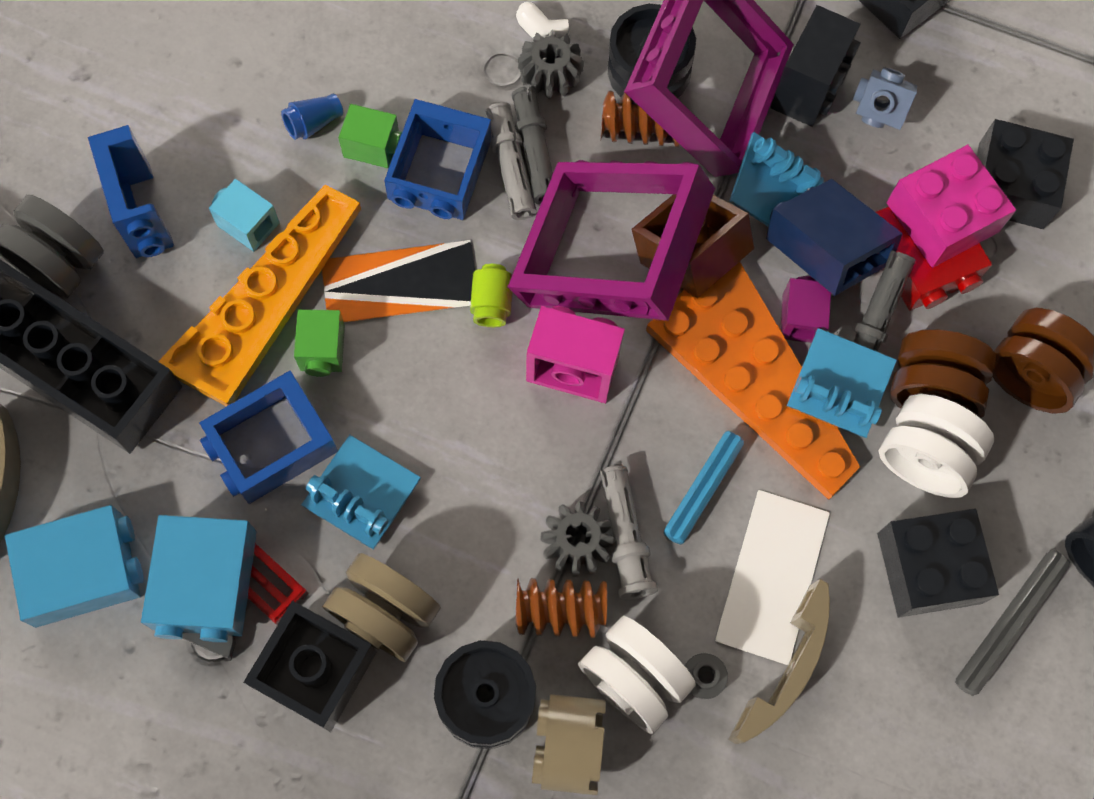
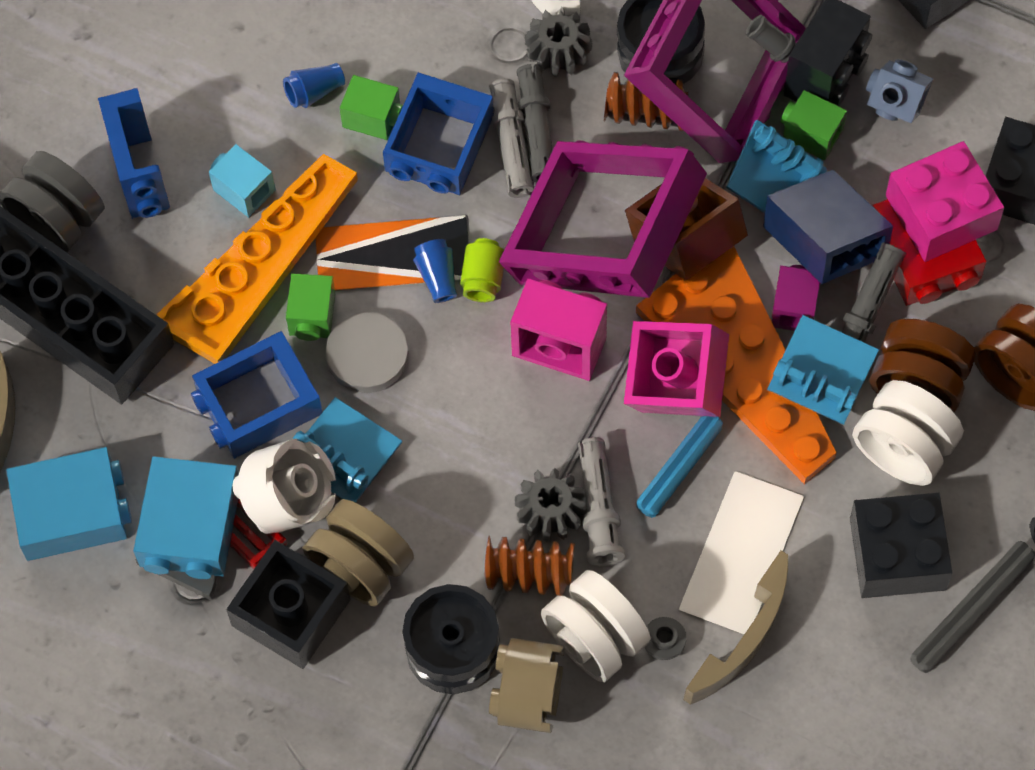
camera: 10 degrees right, 5 degrees down
(301, 539) = (286, 486): none -> white brick
(379, 385) = (367, 352): none -> light grey tile
(445, 296) = (437, 269): none -> blue cone
(696, 390) = (676, 368): none -> dark pink brick
(764, 51) = (771, 39): none -> dark grey pin
(805, 133) = (813, 124): none -> bright green brick

